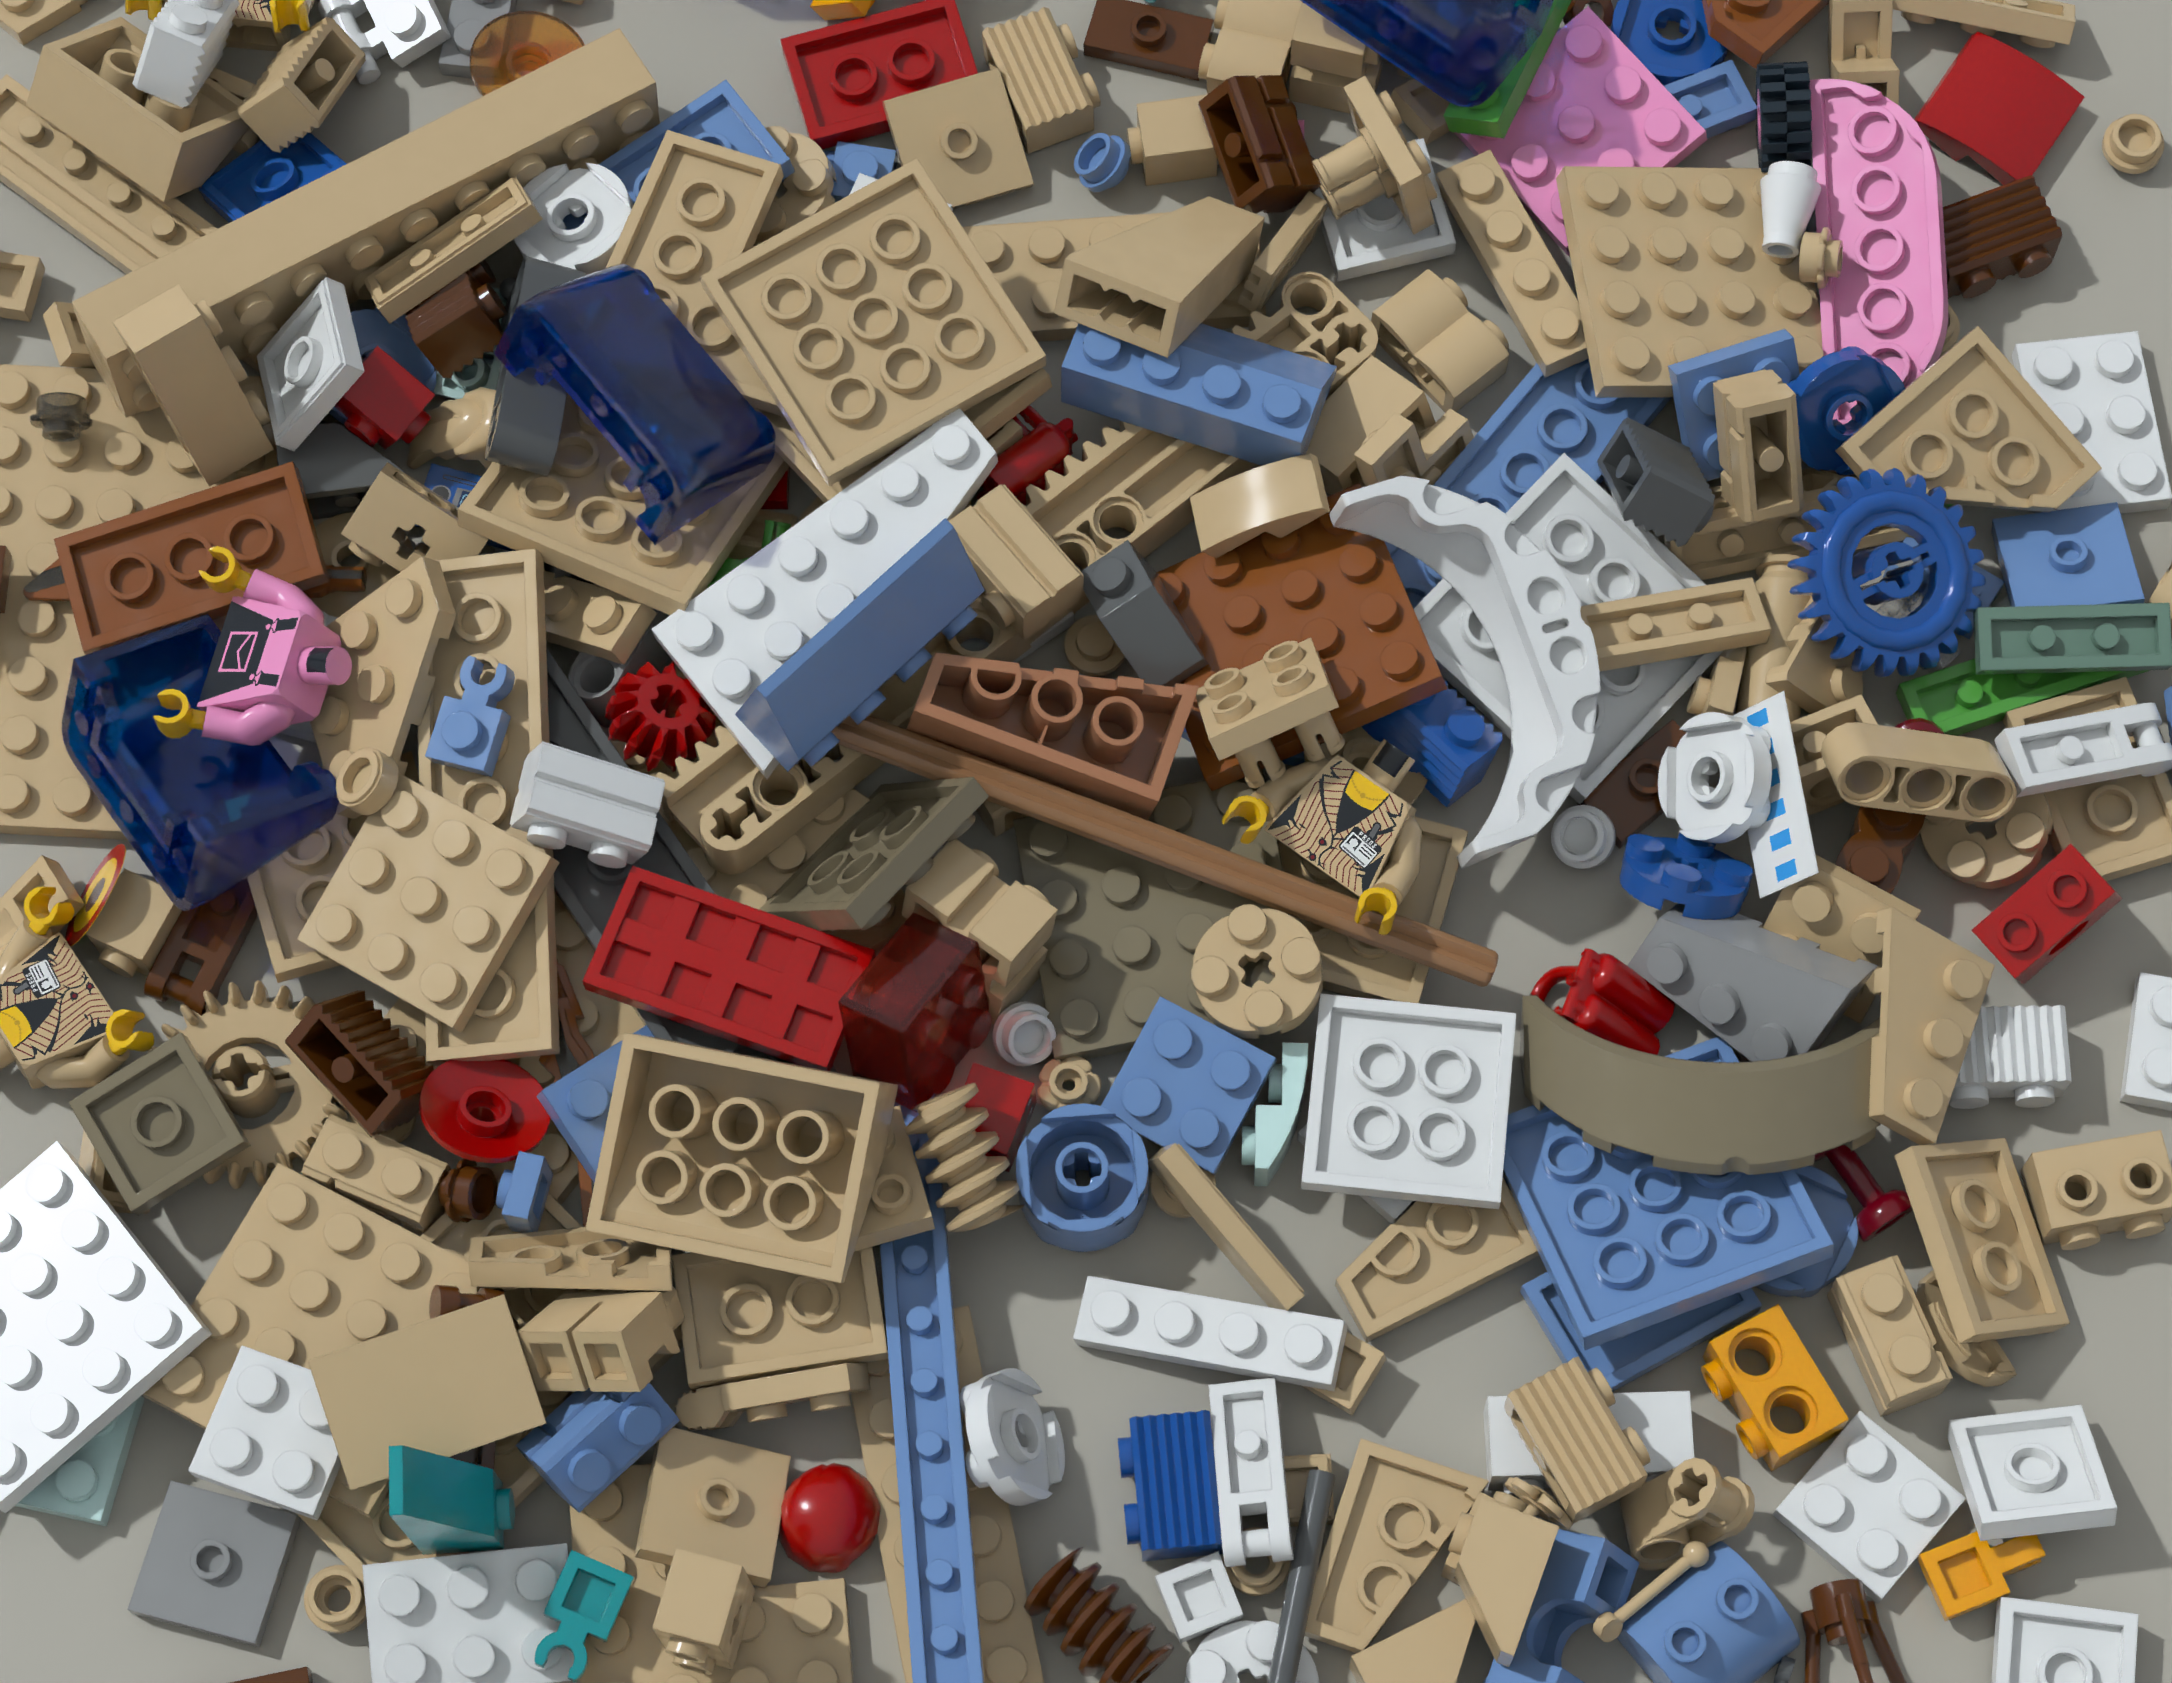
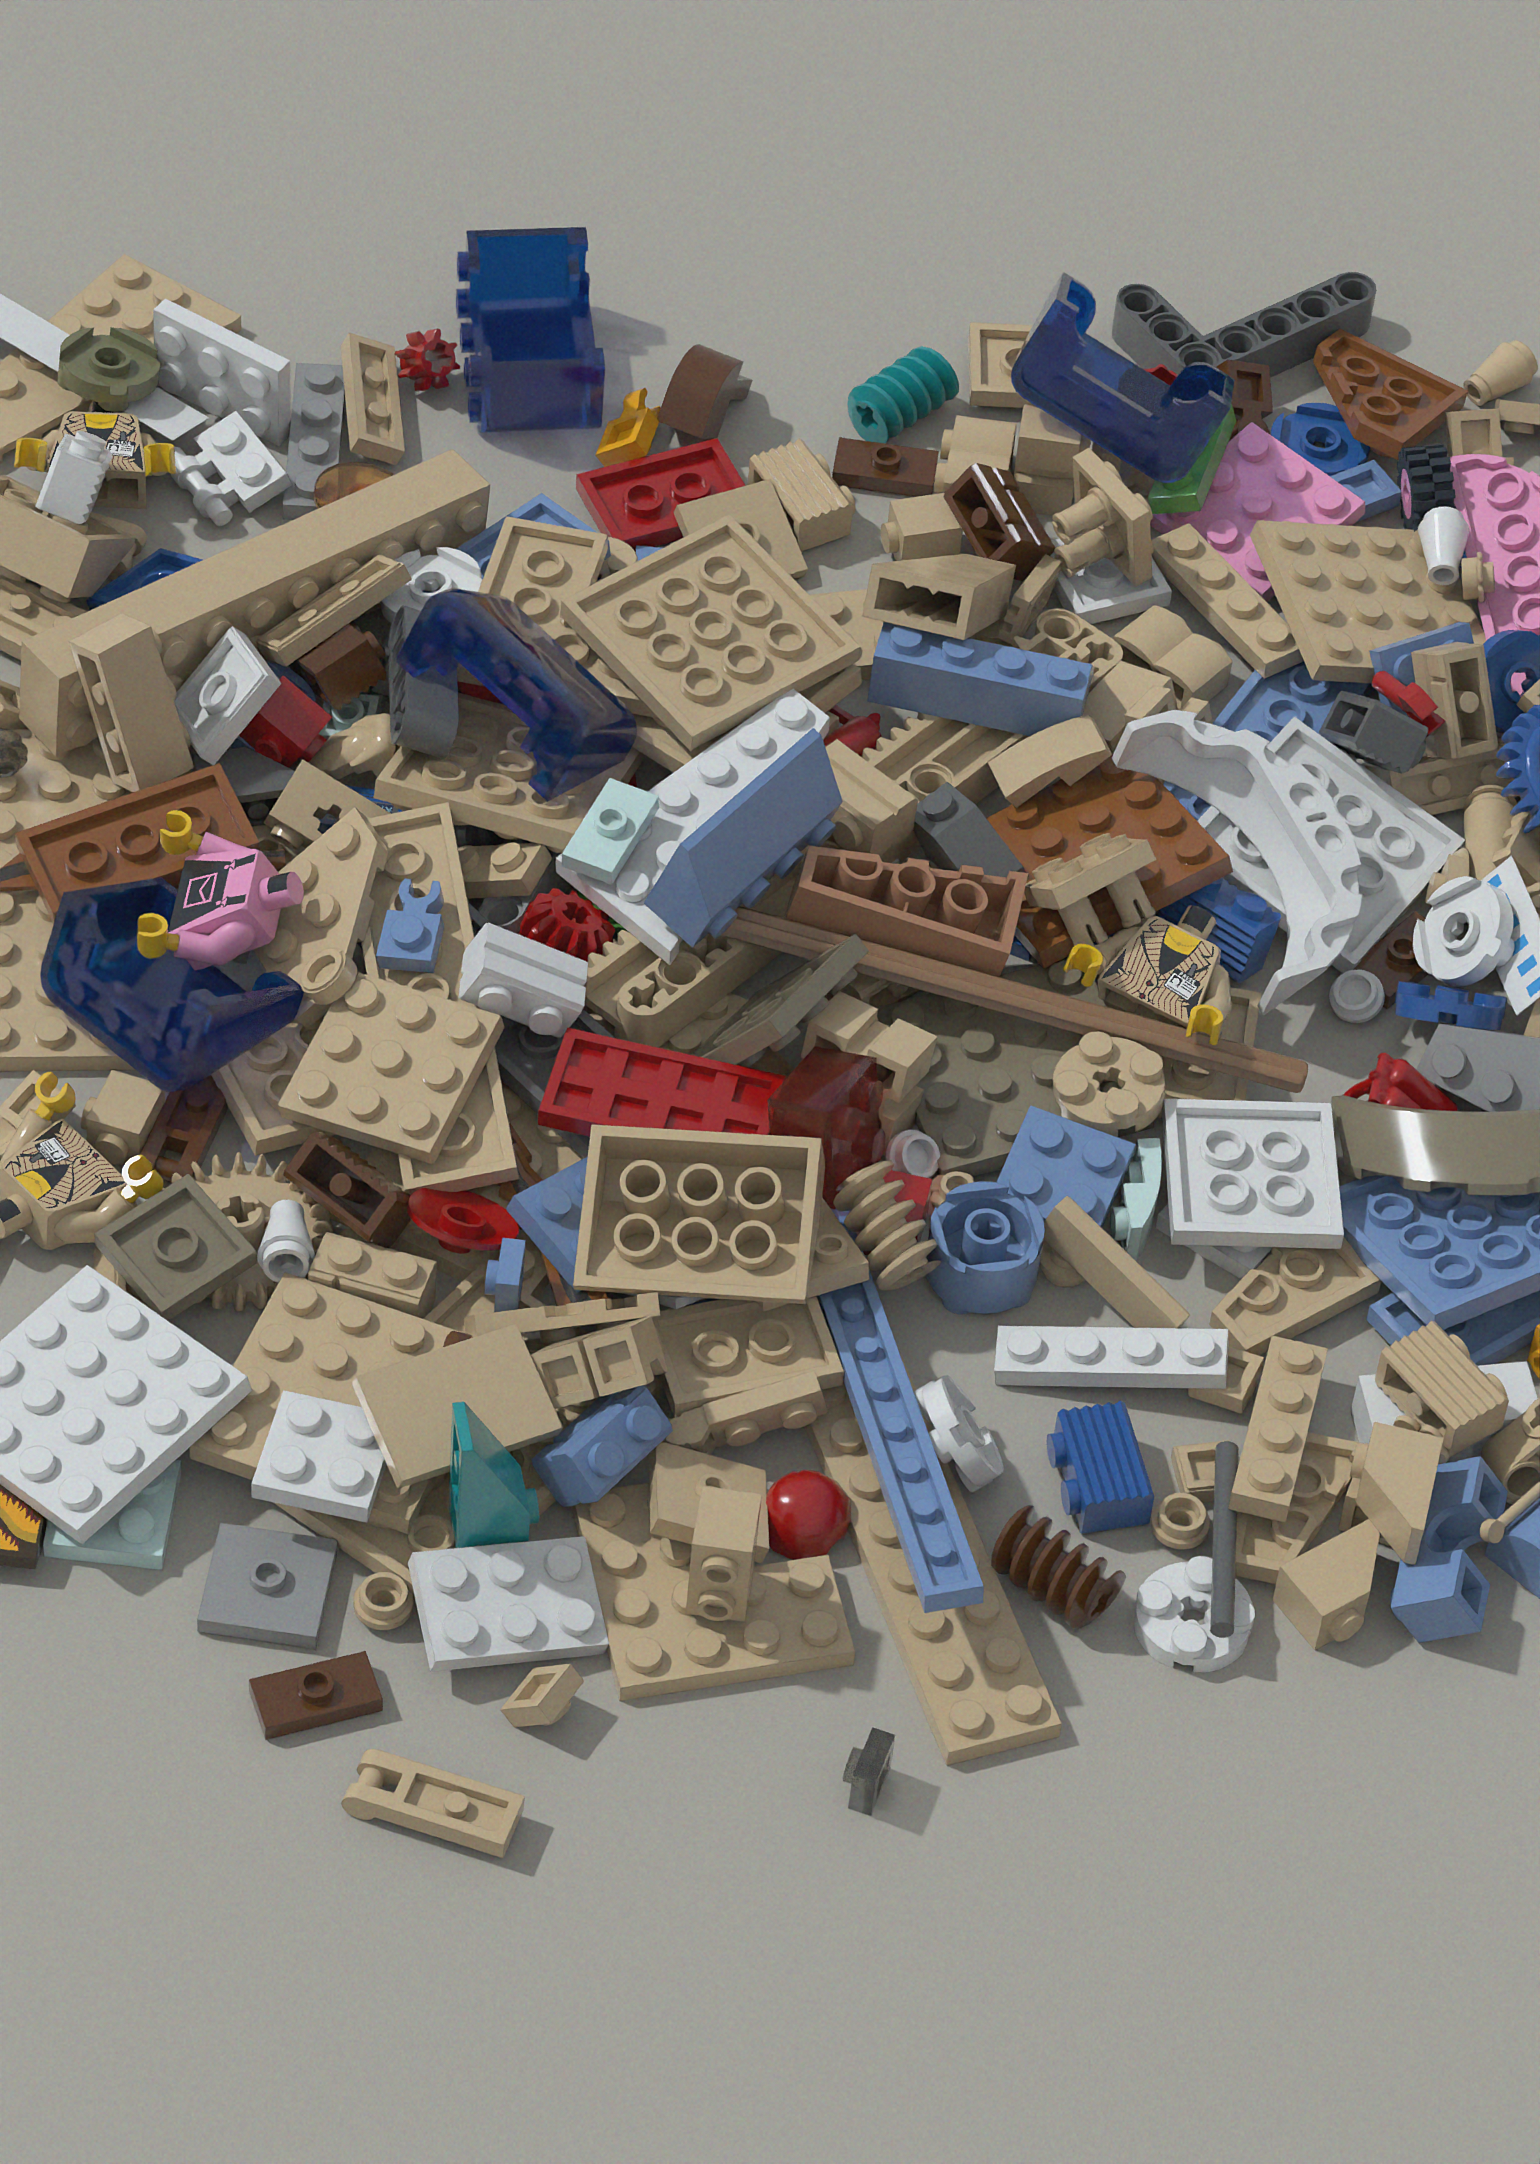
camera: 15 degrees left, 20 degrees down
(96, 894) = (91, 1088): sticker -> none
(284, 1123) = (286, 1242): none -> white cone
(301, 84) = (173, 513): tan brick -> none
(468, 1191) = (455, 1283): reddish brown plate -> none
(584, 1604) = (610, 1576): teal plate -> none
(712, 607) = (610, 831): none -> light aqua plate
(1102, 161) = (863, 549): medium blue plate -> none
(1199, 1597) = (1137, 1547): white plate -> none
(1250, 1470) = (1169, 1446): white plate -> none
(1383, 1458) = (1278, 1429): none -> tan plate
(1677, 624) = (1416, 829): tan plate -> none
(1699, 448) = (1410, 699): none -> red bar

